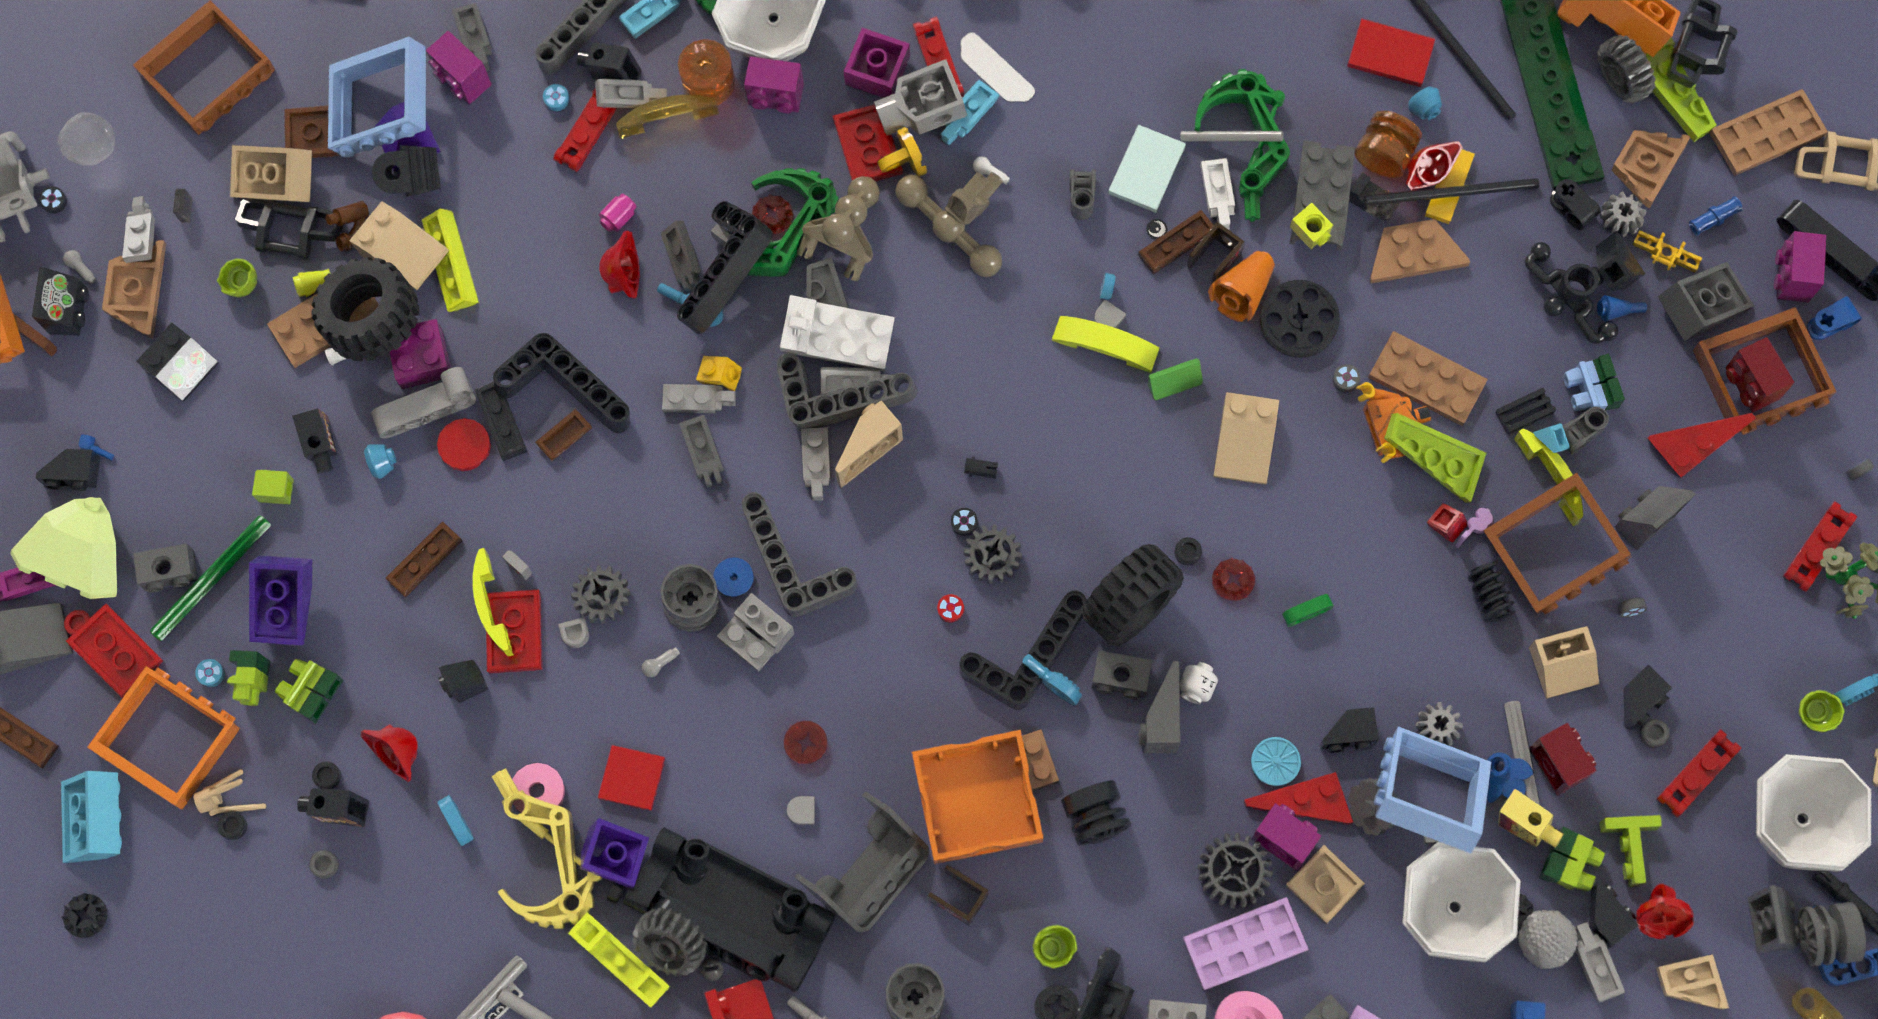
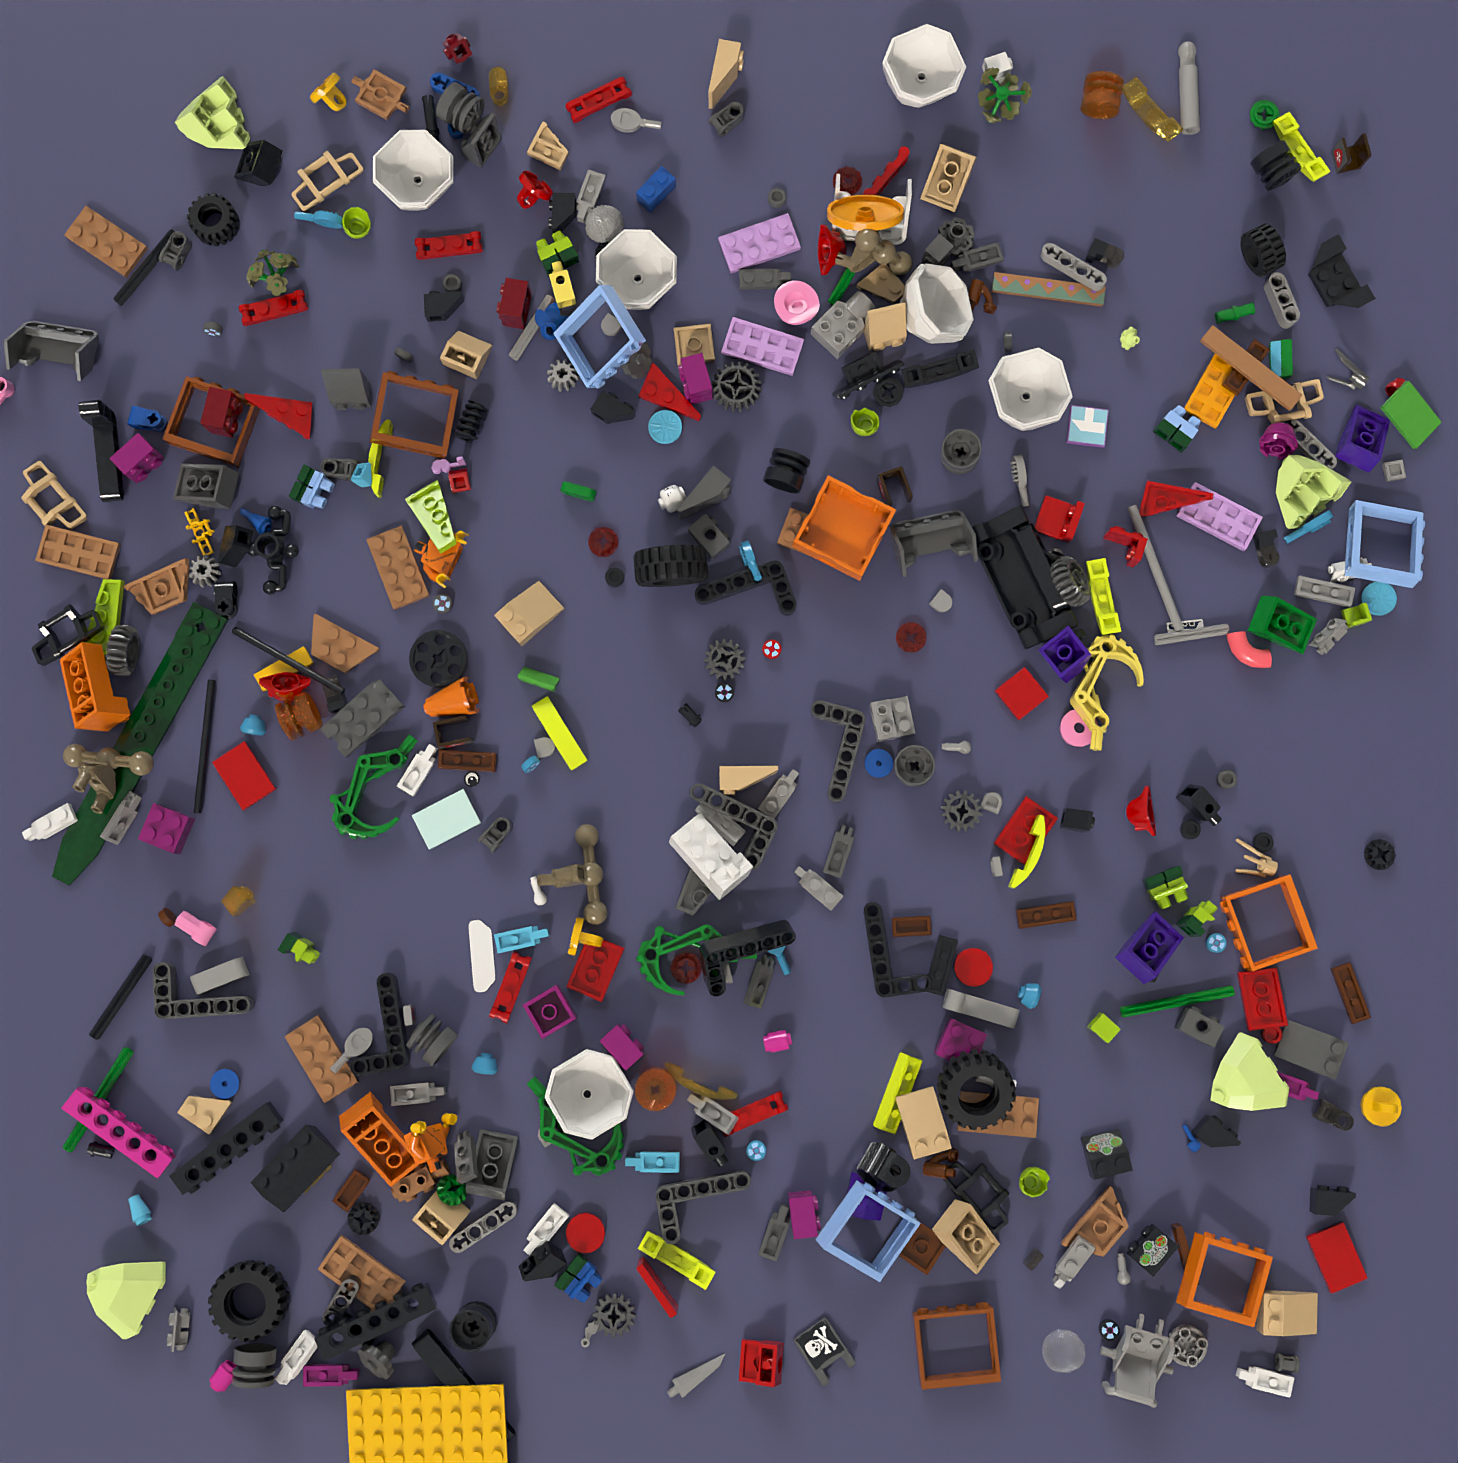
camera: 145 degrees left, 10 degrees up
(90, 816) = (1340, 907): medium azure slope -> none
(308, 282) = (992, 1144): neon yellow cone -> none
(312, 428) = (1054, 1042): black torso -> none
(455, 820) = (1136, 745): dark azure beam -> none
(621, 266) = (801, 1003): red hat -> none
(719, 371) = (793, 892): yellow bracket -> none
(843, 228) = (656, 916): dark tan connector -> none
(922, 101) = (545, 961): light grey brick -> none
(1232, 136) = (382, 795): light grey bar -> none
(1312, 215) = (388, 706): neon yellow brick -> none
(1545, 401) = (345, 502): black tile -> none
(1631, 843) = (516, 238): lime bracket -> none
(1715, 215) = (154, 529): blue pin -> none

